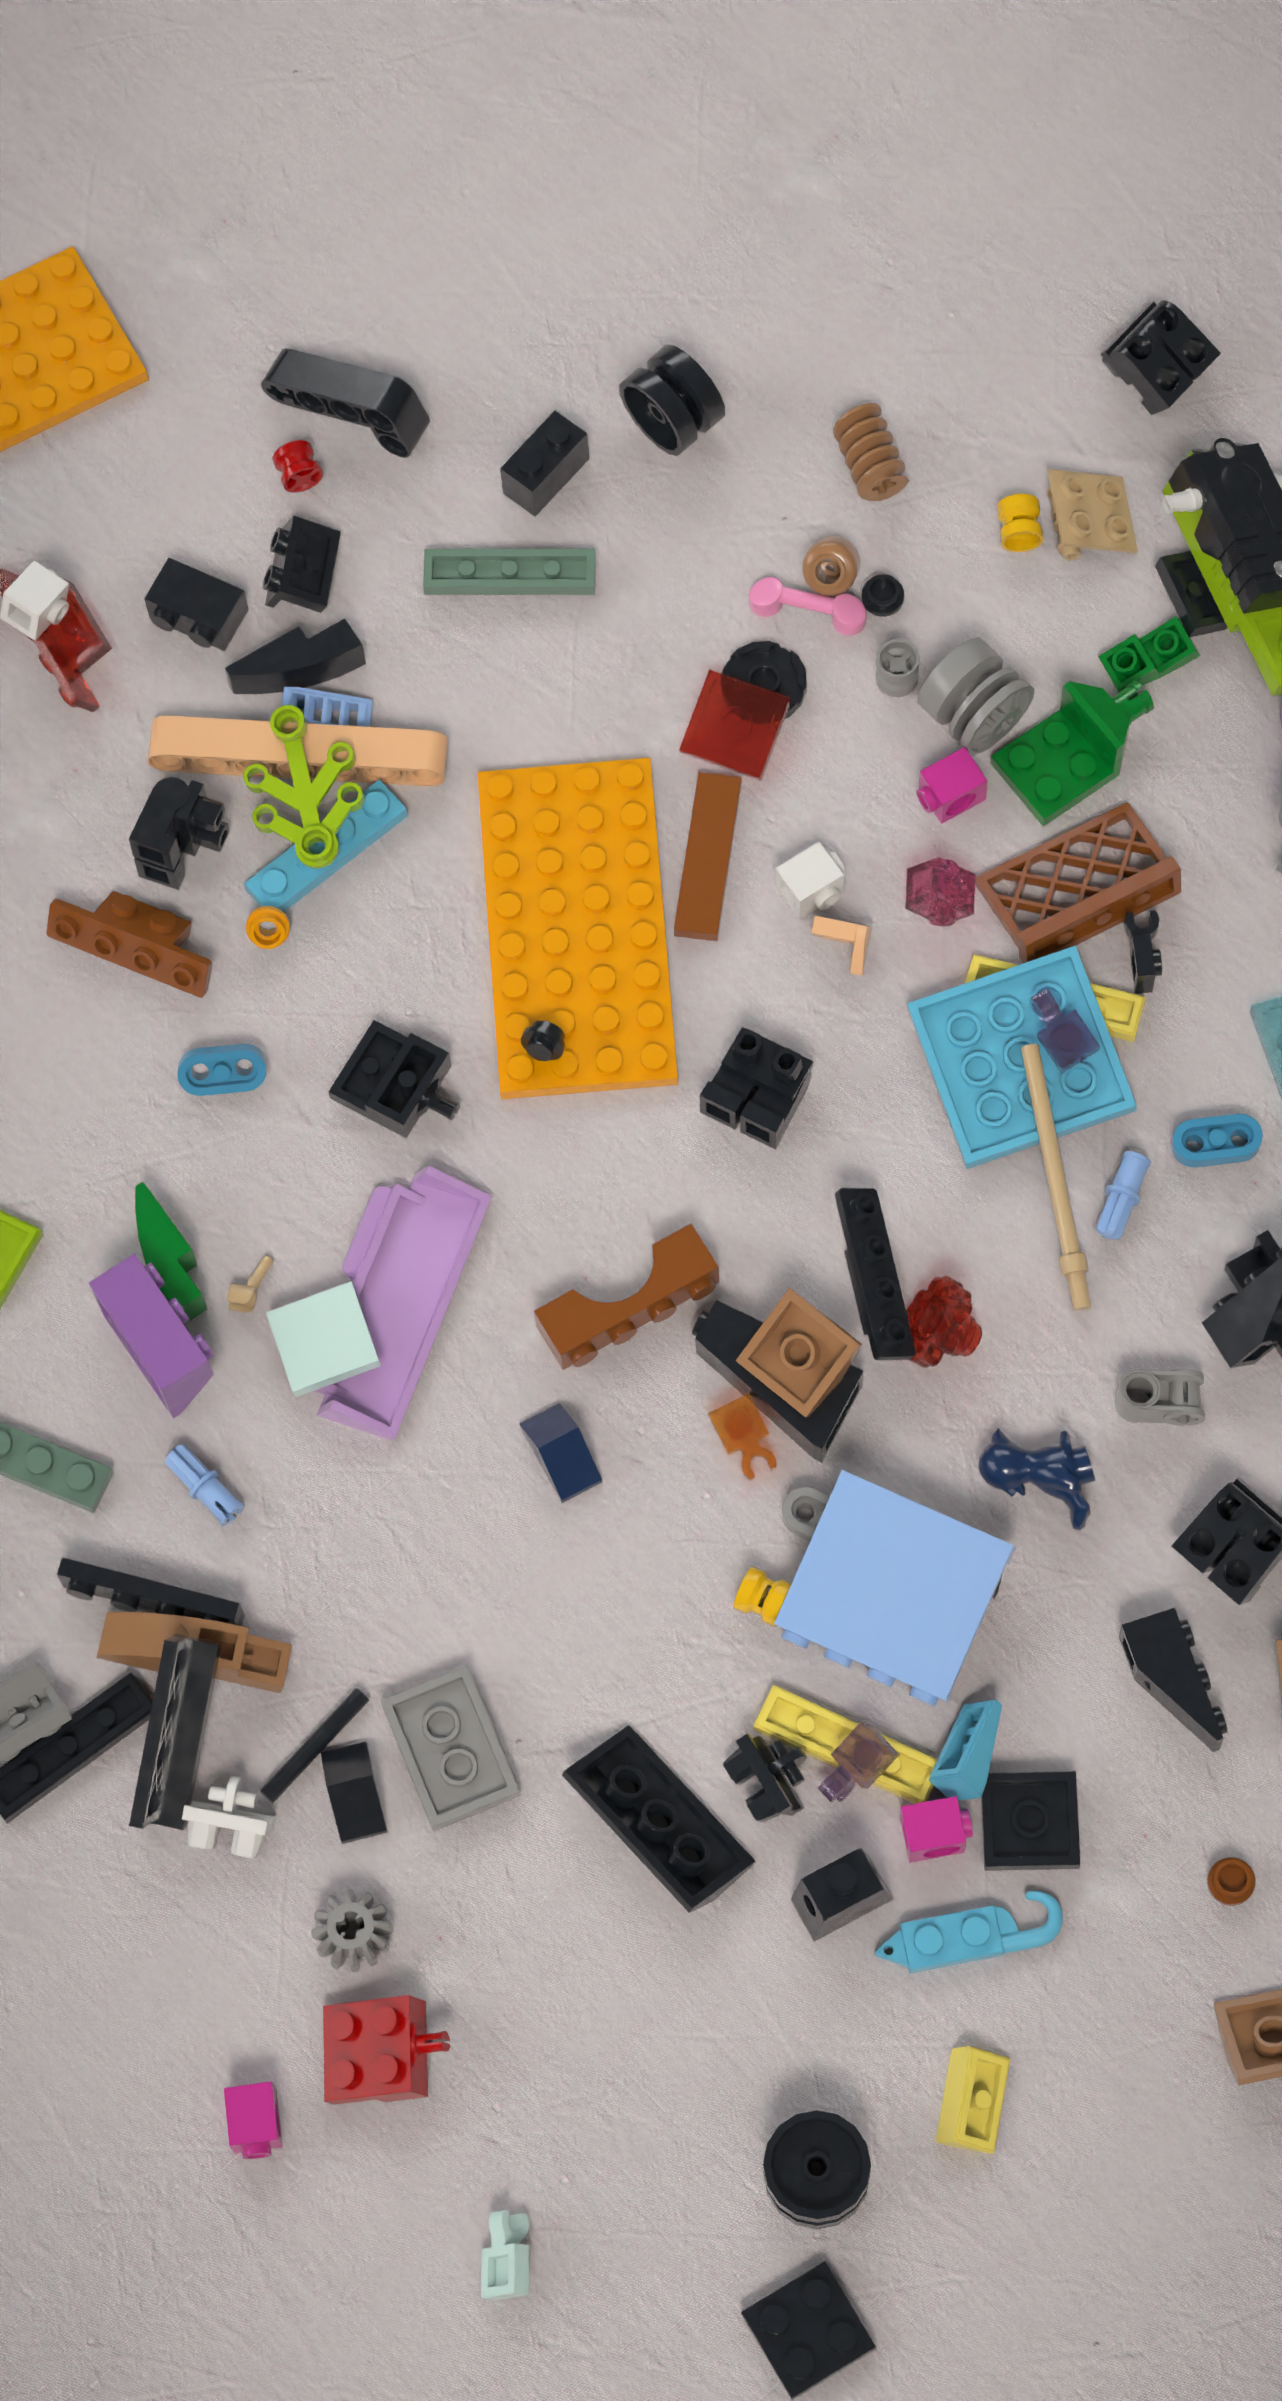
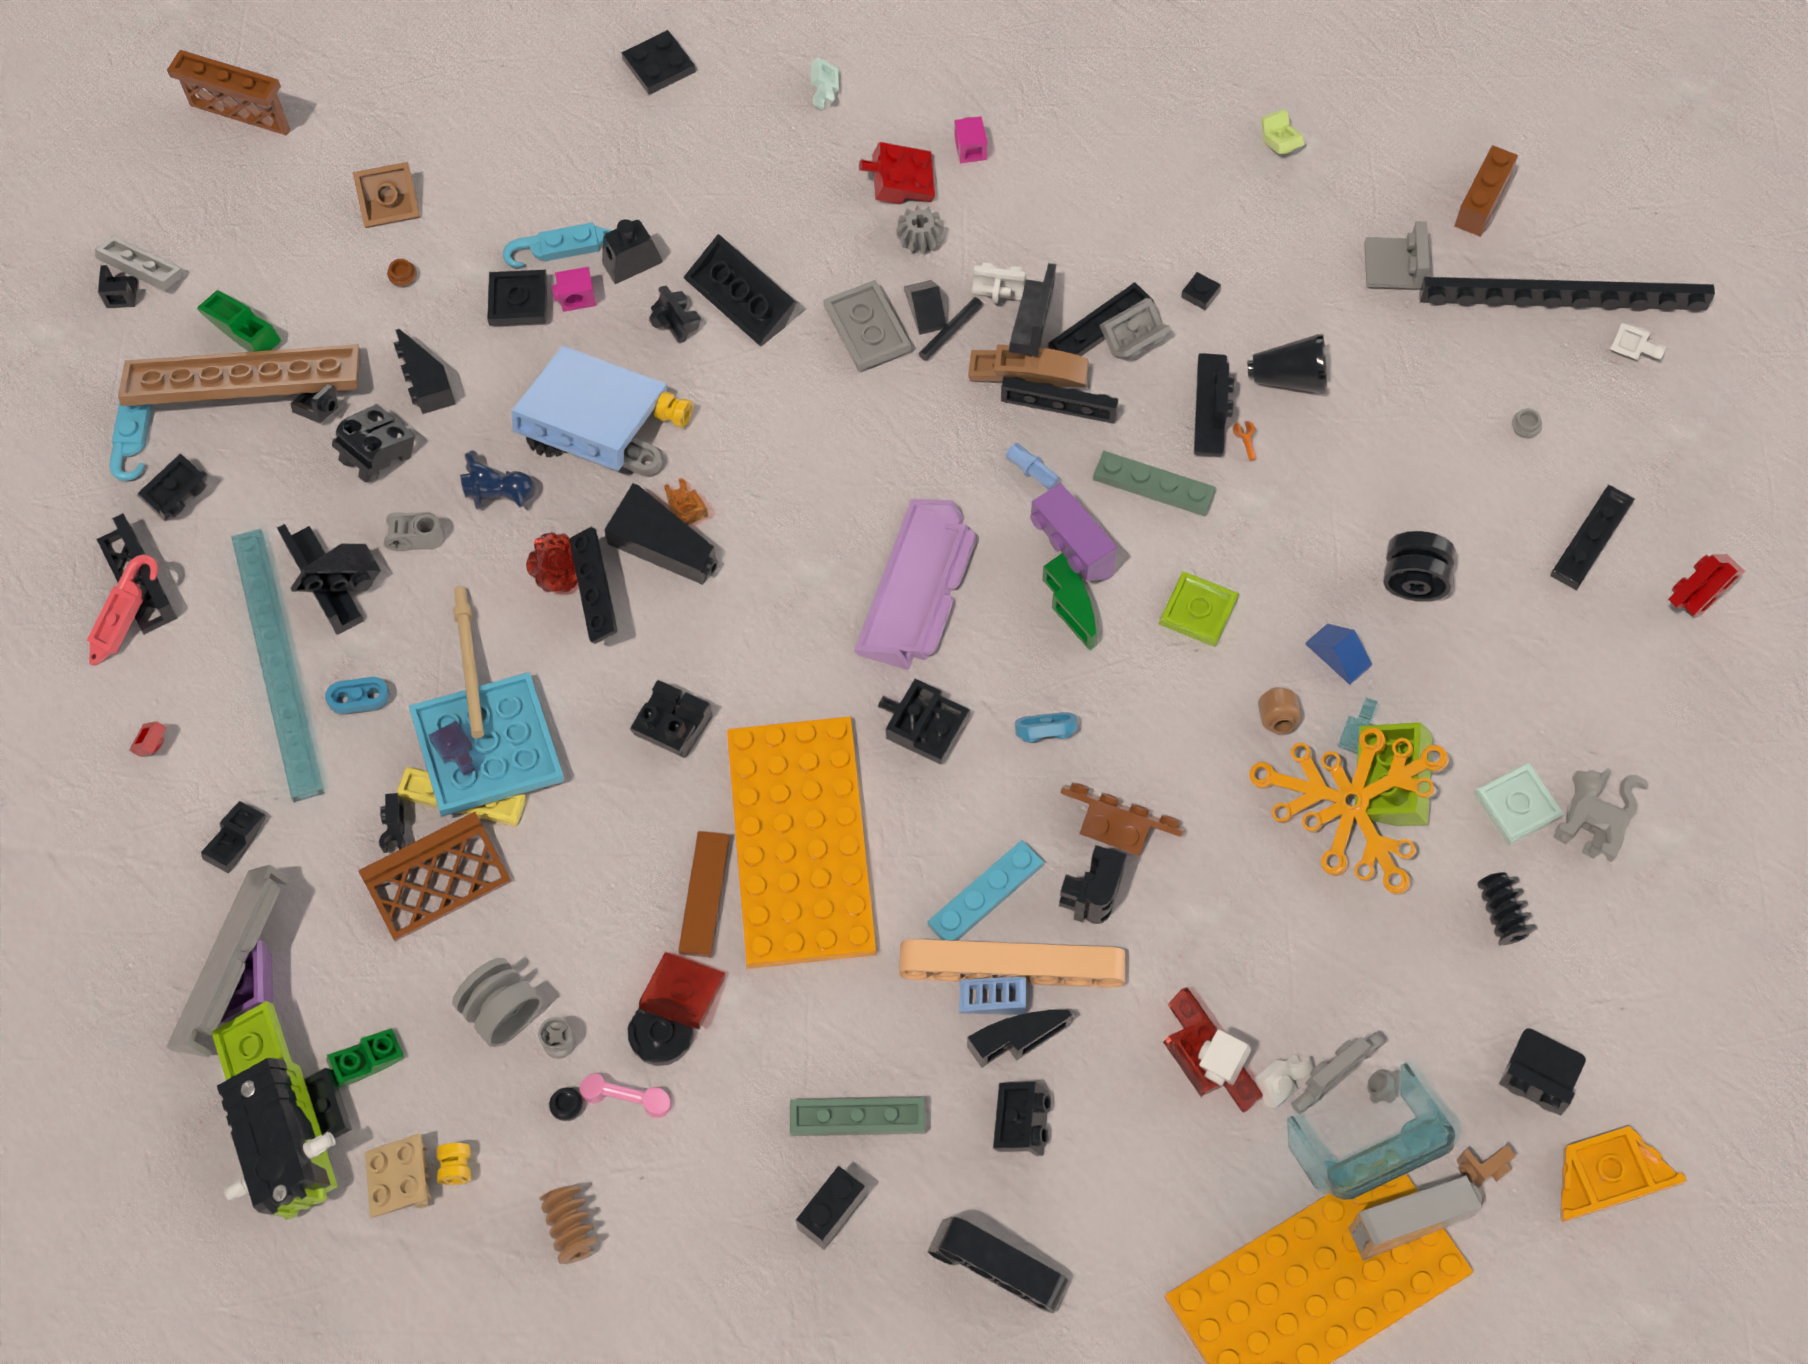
camera: 175 degrees right, 5 degrees down
(196, 605) = (1101, 1080): black brick -> none
(243, 1297) = (1017, 582): tan hand -> none
(267, 938) = (1022, 827): light orange plate -> none
(297, 466) = (1031, 1204): red wheel -> none
(305, 795) = (1002, 913): lime plant -> none
(323, 1339) = (960, 546): light aqua tile -> none
(543, 1041) = (819, 735): black plate -> none
(561, 1452) = (805, 495): dark blue slope -> none
(580, 1326) = (790, 563): dark orange arch -> none
(672, 400) = (721, 1259): black wheel -> none
(799, 1353) = (645, 528): medium nougat slope -> none
(811, 880) = (628, 869): white brick -> none
(812, 2199) = (649, 119): black wheel -> none
(817, 569) = (603, 1116): medium nougat head -> none
(822, 1731) = (625, 337): light yellow tile -> none
(849, 933) = (607, 830): light nougat tile -> none
(861, 1761) = (616, 317): plate -> none
(940, 891) = (534, 857): clear pink brick -> none
(951, 786) = (522, 943): dark pink brick -> none
(968, 1752) = (565, 317): medium azure slope -> none
(972, 2099) = (562, 167): light yellow slope -> none
(1072, 749) = (427, 977): green plate -> none
(1122, 1195) = (425, 659): light blue axle -> none
(1160, 354) = (337, 1317): black hips -> none

